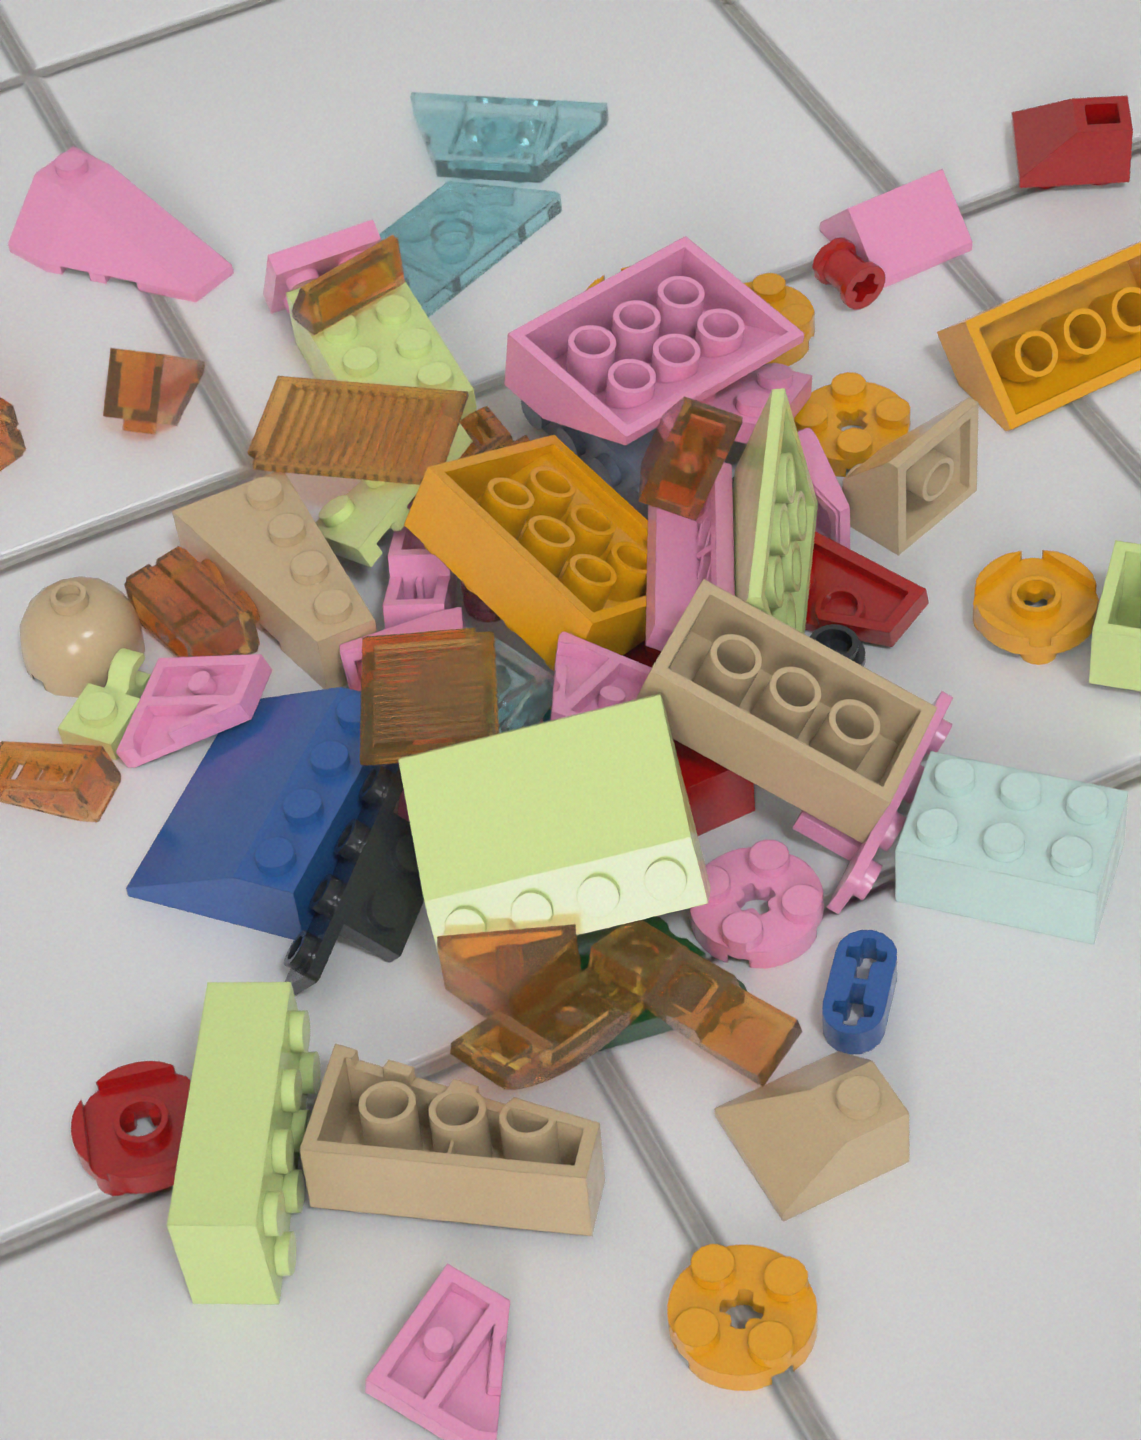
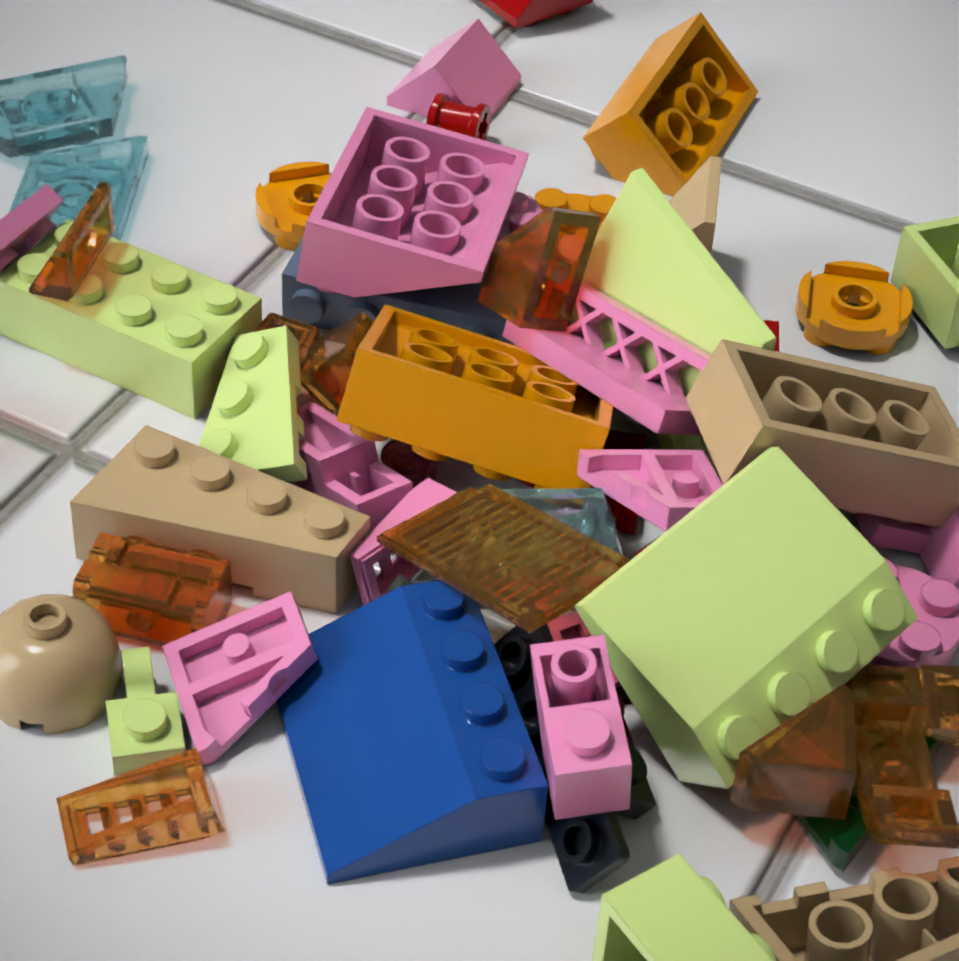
camera: 45 degrees left, 5 degrees down
(328, 857) = (581, 727): none -> bright pink slope
(355, 429) = (194, 364): clear orange window -> none

